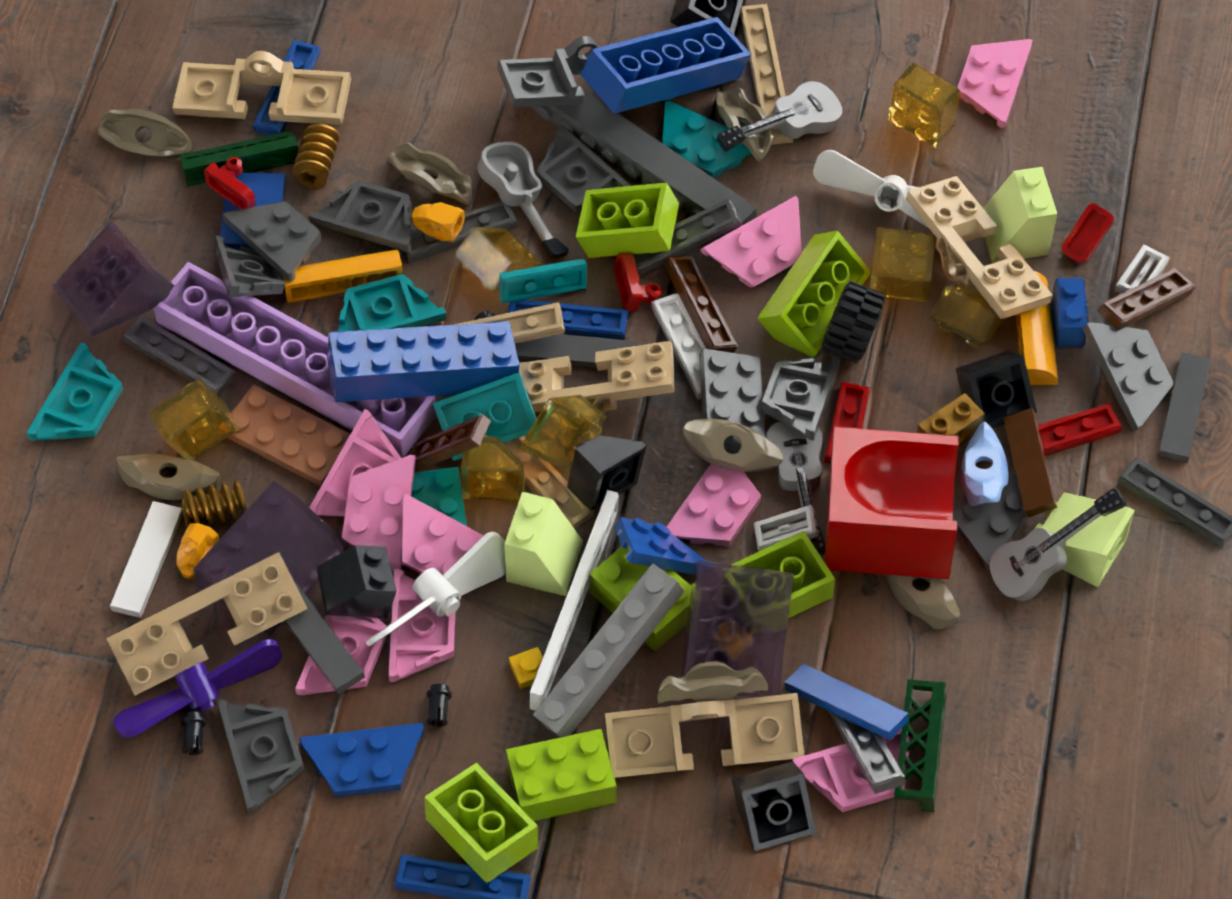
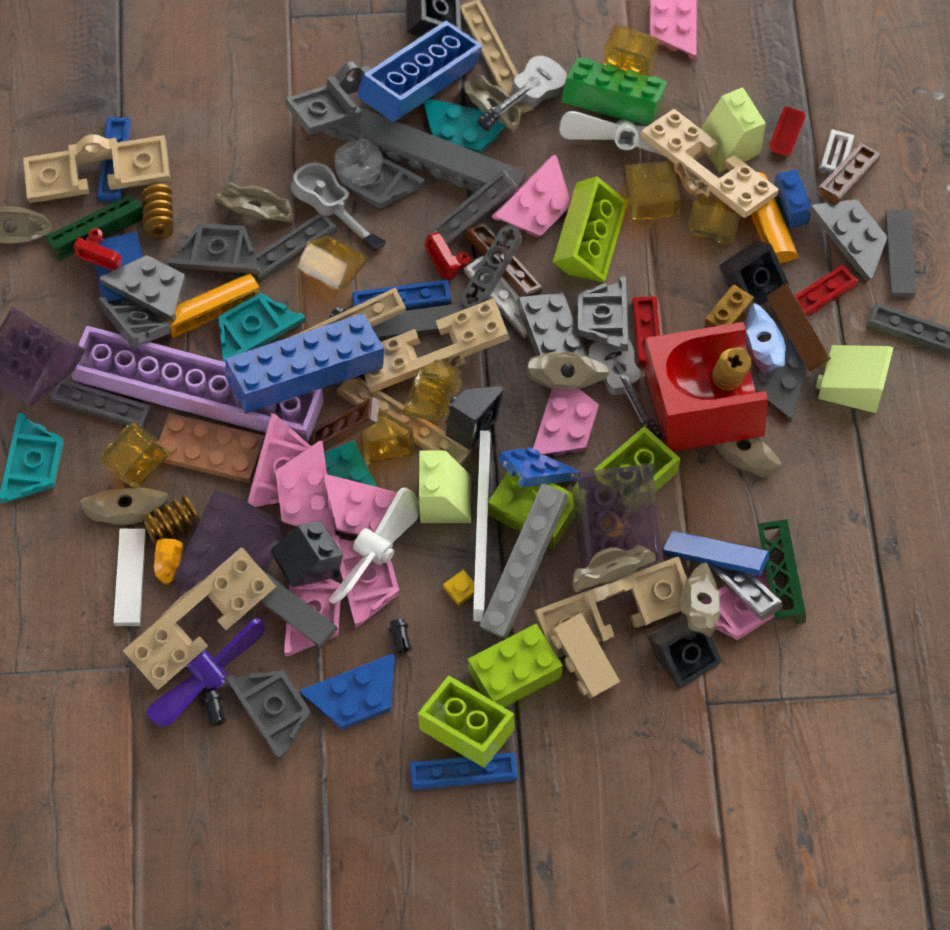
camera: 15 degrees left, 5 degrees up
(439, 220) = (275, 242): light orange rock -> none
(500, 401) = (374, 380): teal plate -> none
(542, 280) = (374, 272): teal tile -> none
(559, 140) = (358, 150): none -> clear plate
(627, 220) = (427, 206): lime brick -> none
(647, 782) = (584, 656): none -> tan brick
(677, 304) = (495, 270): none -> dark grey beam
(783, 532) = (641, 409): white tile -> none
(799, 768) = (701, 616): none -> dark tan piece
(853, 322) = (630, 247): black tyre -> none
(891, 141) = (614, 91): none -> green brick
(926, 487) = (731, 369): none -> pearl gold piece
(1026, 564) = (820, 410): light grey piece -> none

